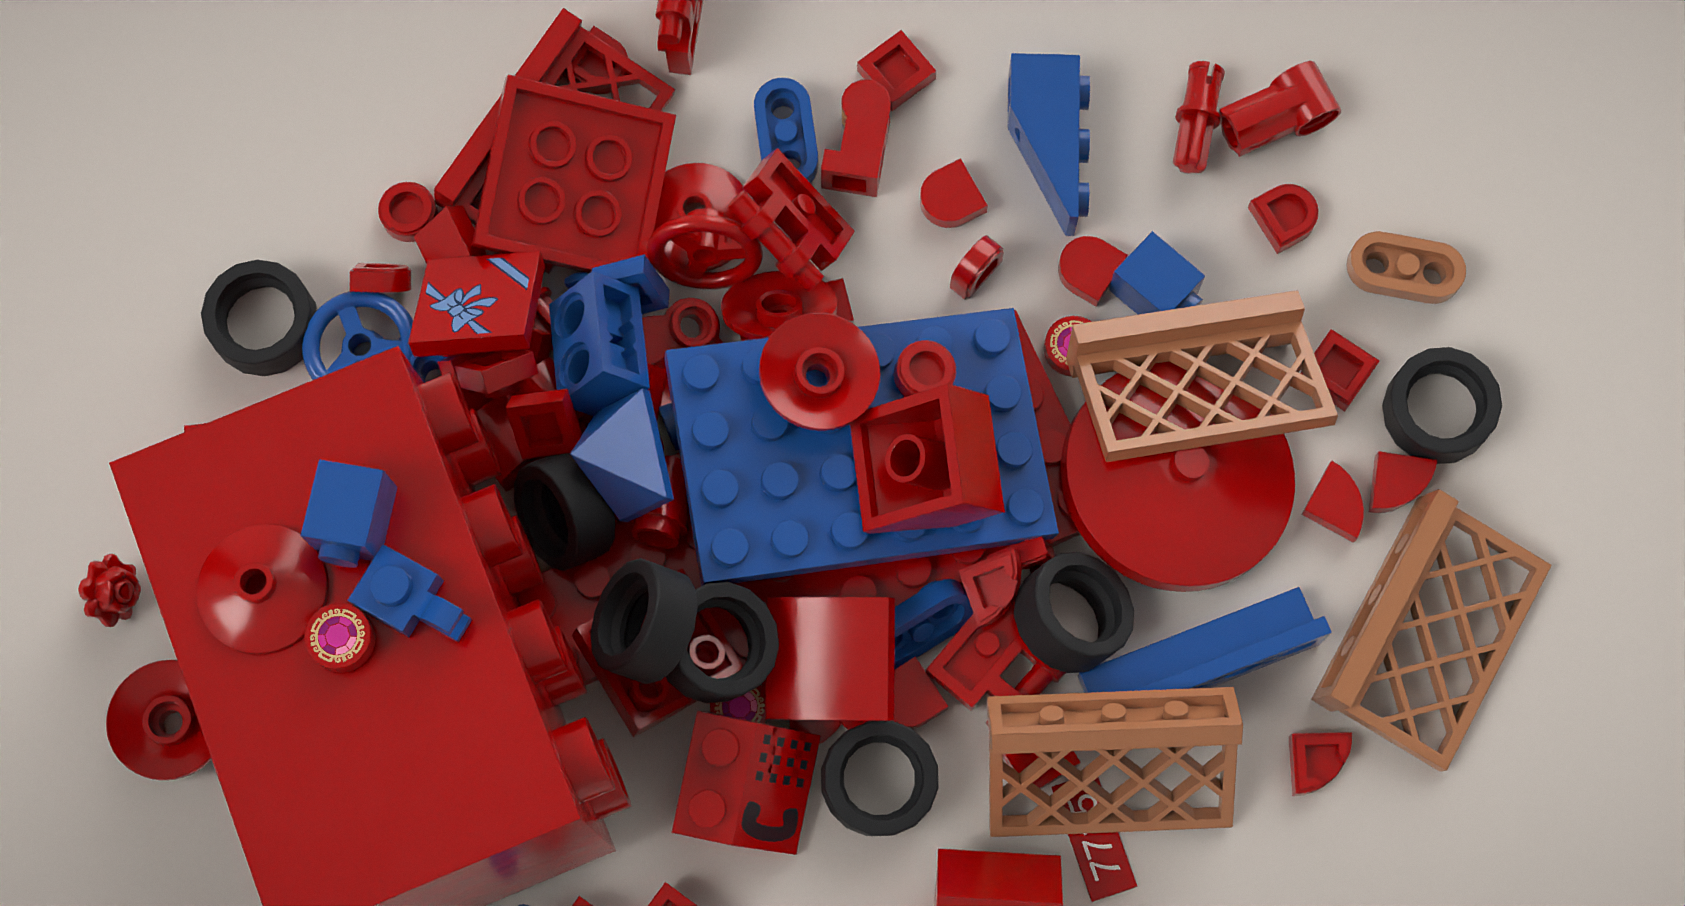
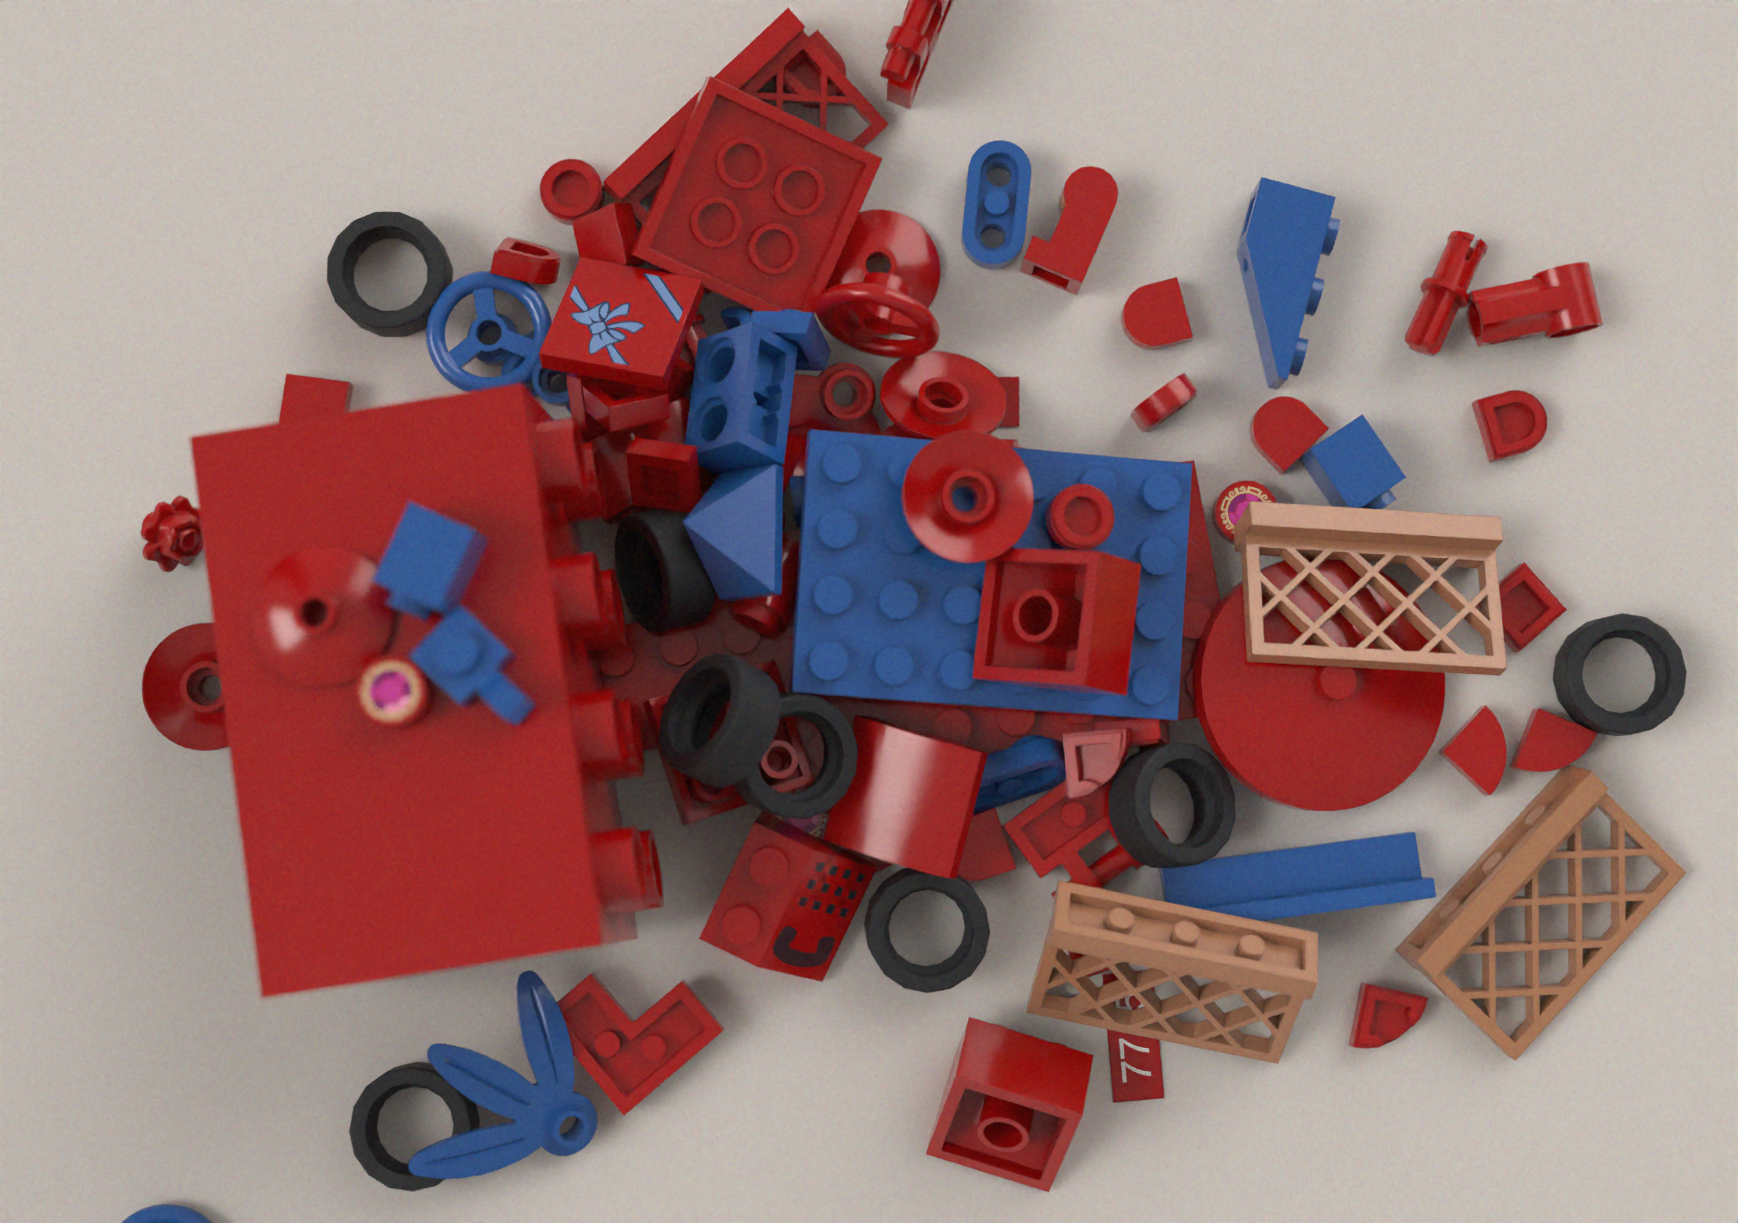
camera: 10 degrees right, 10 degrees up
(806, 217) = (991, 301): red plate -> none
(898, 68) = (1134, 158): red tile -> none
(1404, 264) = (1621, 513): nougat plate -> none

